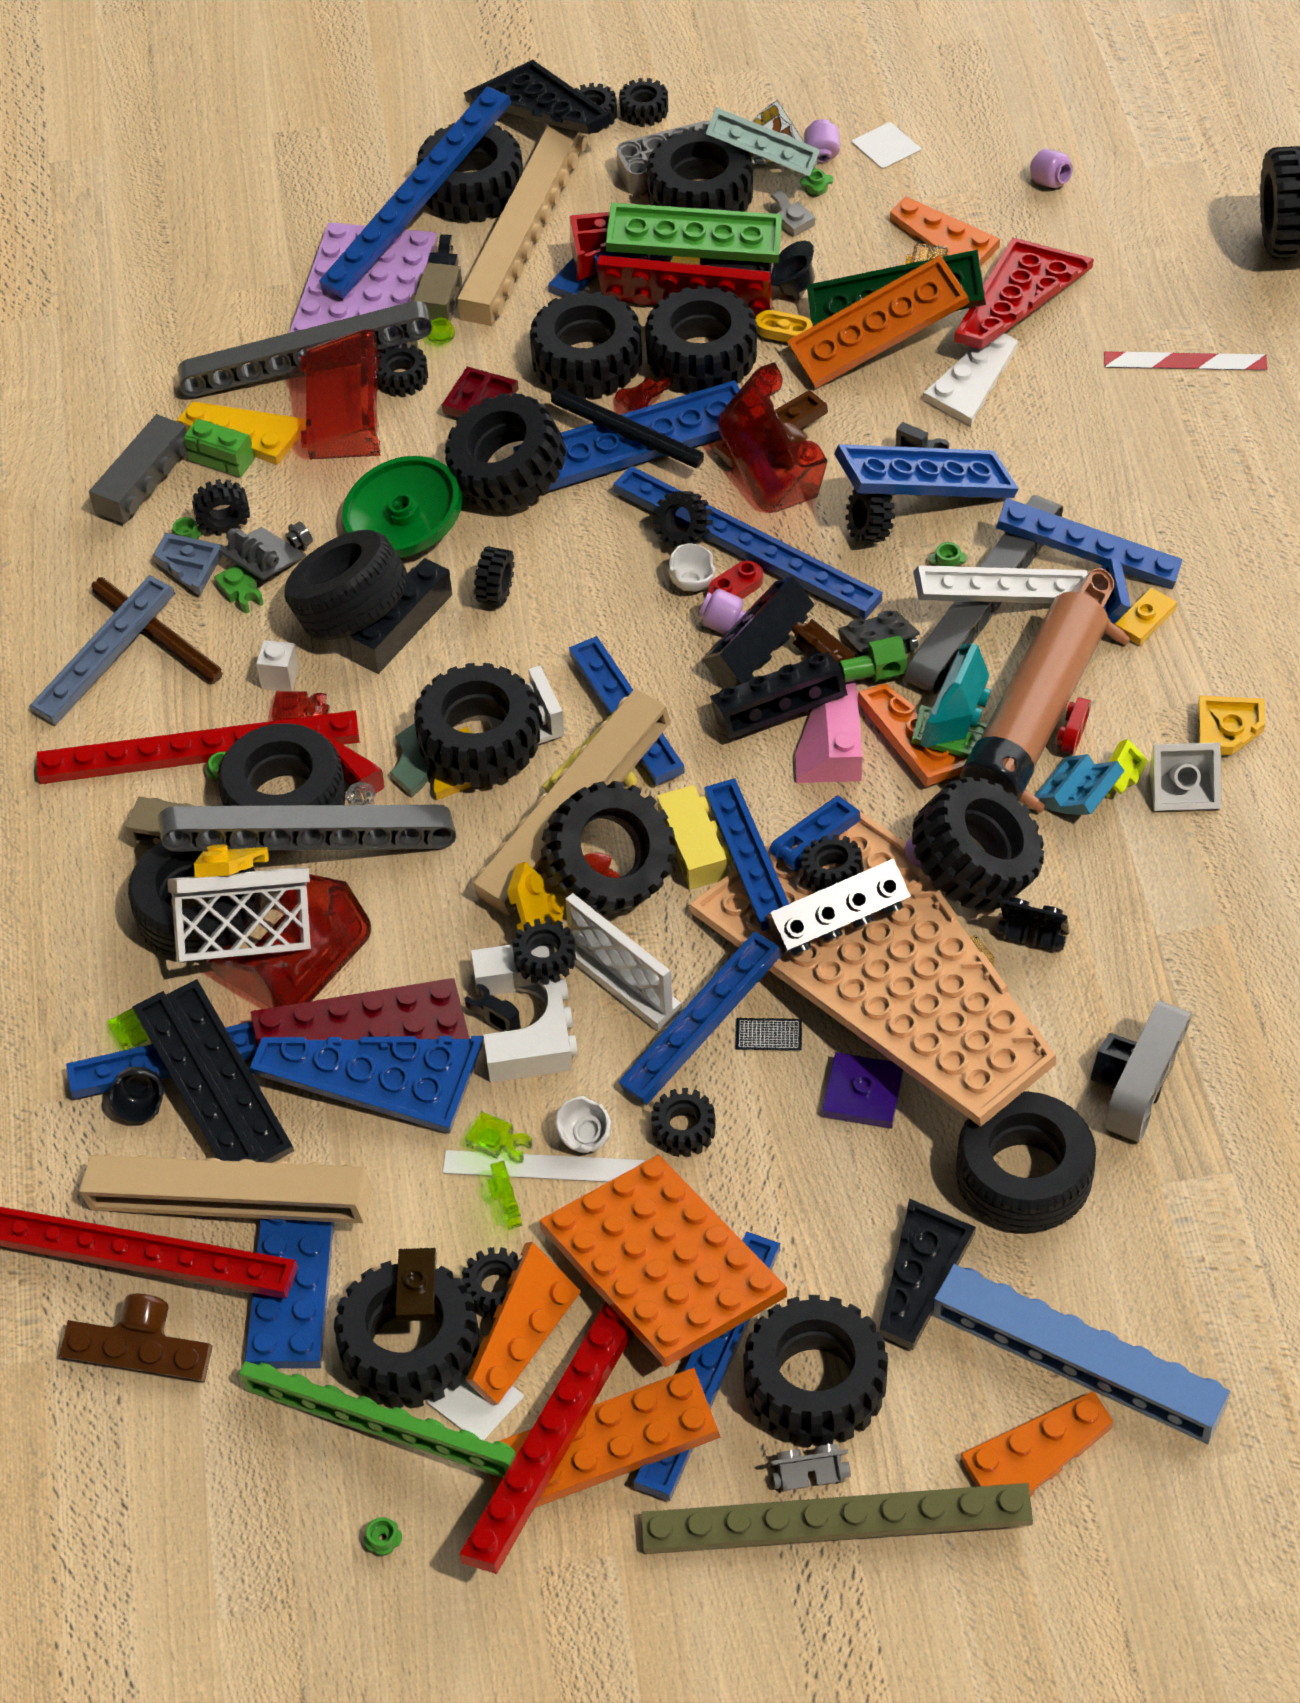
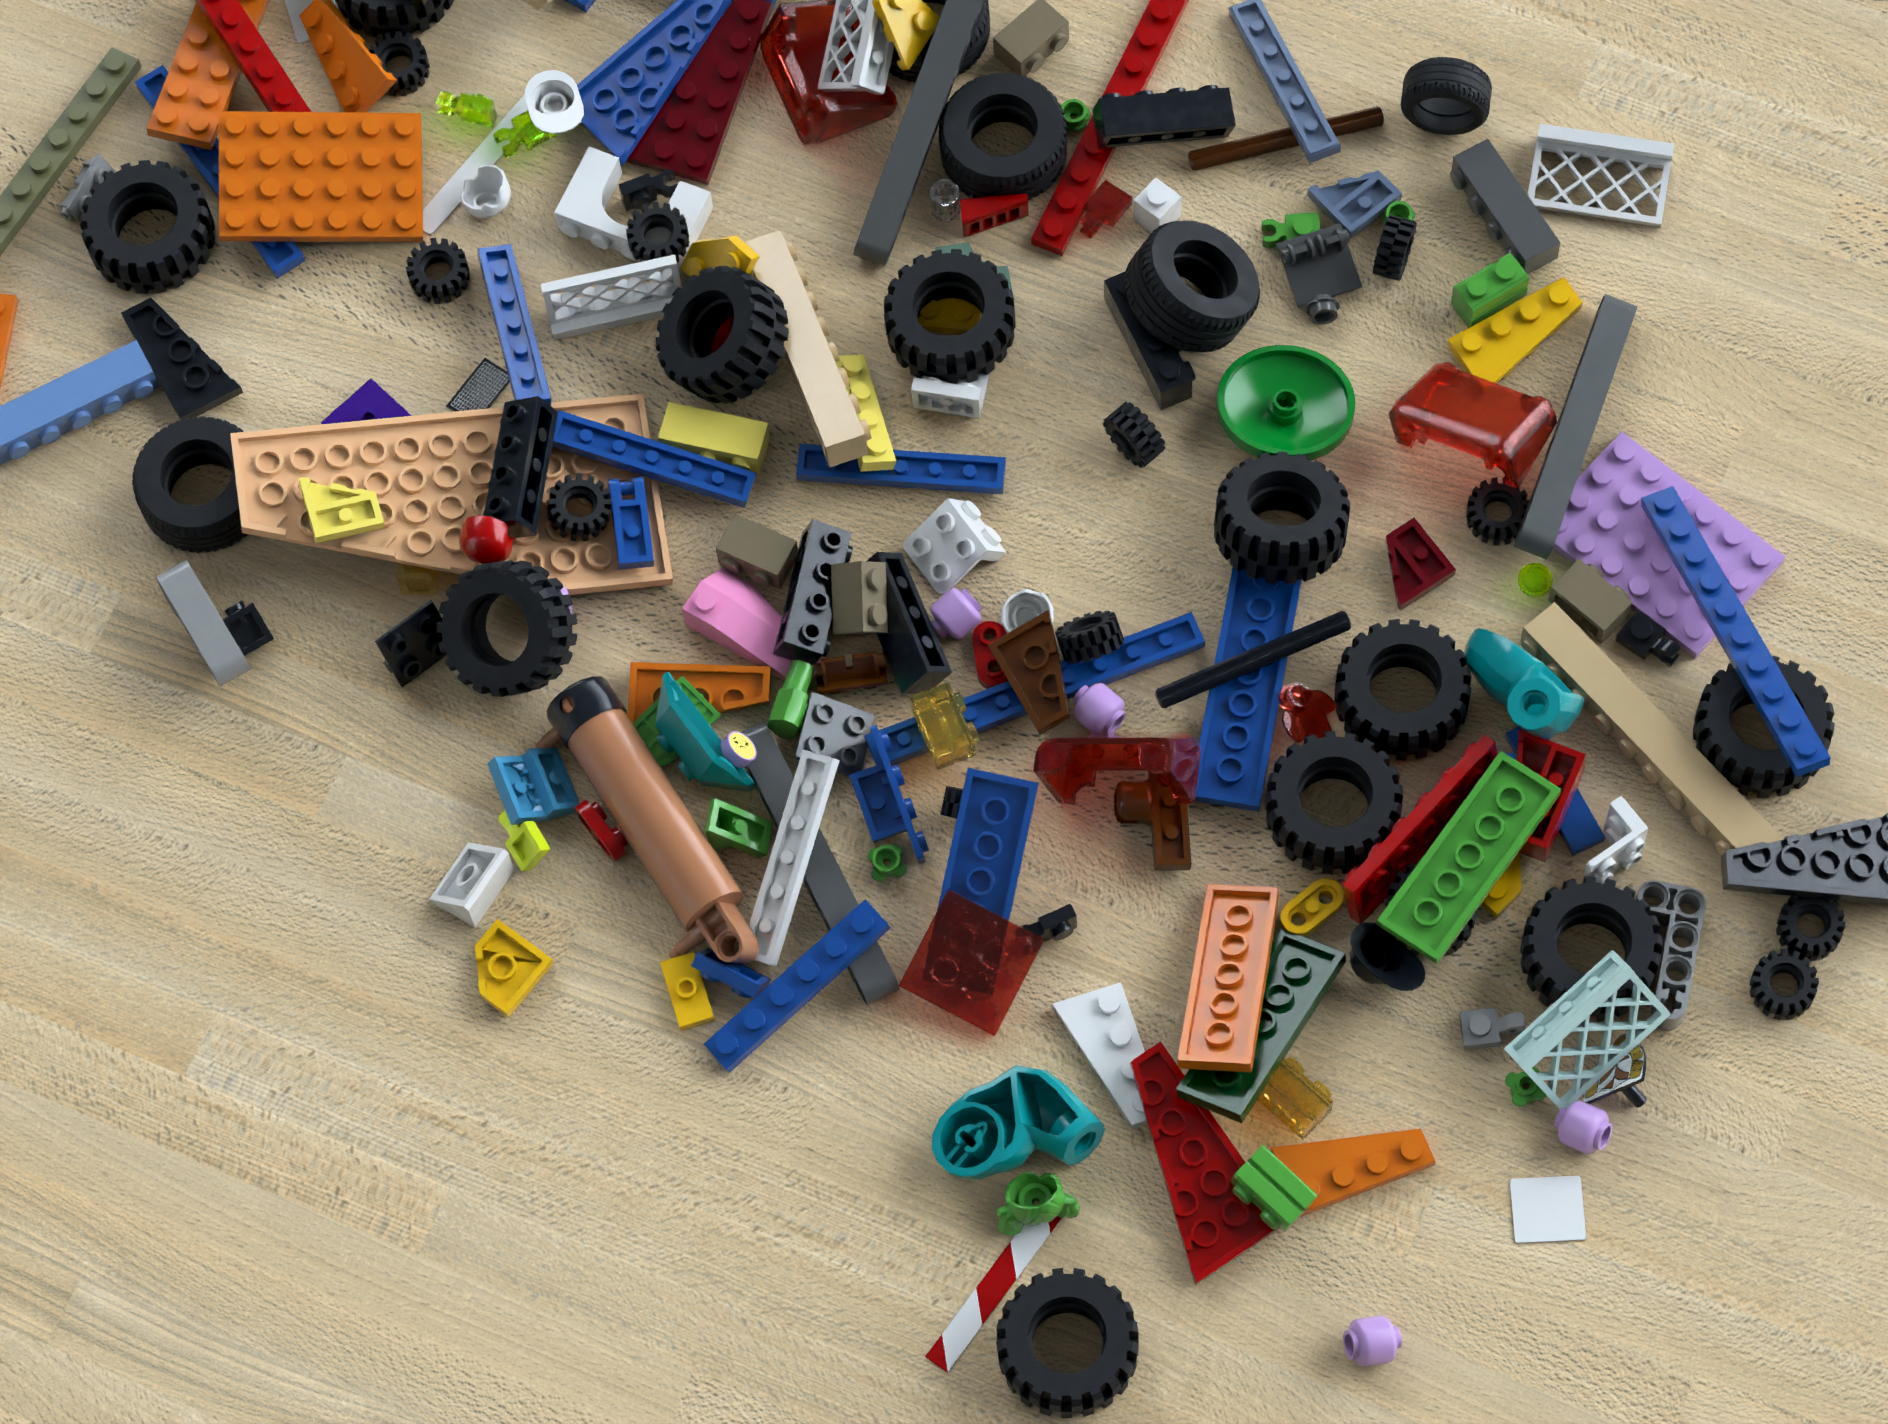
camera: 125 degrees right, 15 degrees up
(46, 440) = (1603, 147): none -> white fence
(65, 528) = (1446, 96): none -> black tyre
(194, 691) = (1163, 116): none -> black brick
(466, 1102) = (554, 102): none -> white piece
(544, 265) = (1522, 684): none -> teal piece
(618, 186) = (1627, 838): none -> white bracket
(668, 642) = (952, 544): none -> white bracket
(733, 493) = (1098, 708): none -> lavender head
(738, 532) = (1034, 671): none -> reddish brown wing
(764, 651) = (859, 598): none -> dark tan brick
(769, 756) = (756, 552): none -> dark tan brick
(823, 557) = (944, 726): none -> clear yellow brick
(895, 572) = (882, 800): none -> blue bracket
(925, 885) = (485, 539): none -> red hair
(948, 655) = (738, 749): none -> tile
(982, 995) = (339, 511): none -> light yellow wing
(985, 458) = (971, 962): none -> clear red plate
(1003, 238) = (1272, 1189): none -> bright green brick
(1006, 644) = (737, 828): none -> bright green slope
(1082, 386) = (1008, 1119): none -> teal piece
(1119, 351) = (1021, 1195): none -> bright green hair
(1199, 265) = (1060, 1295): none -> black tyre

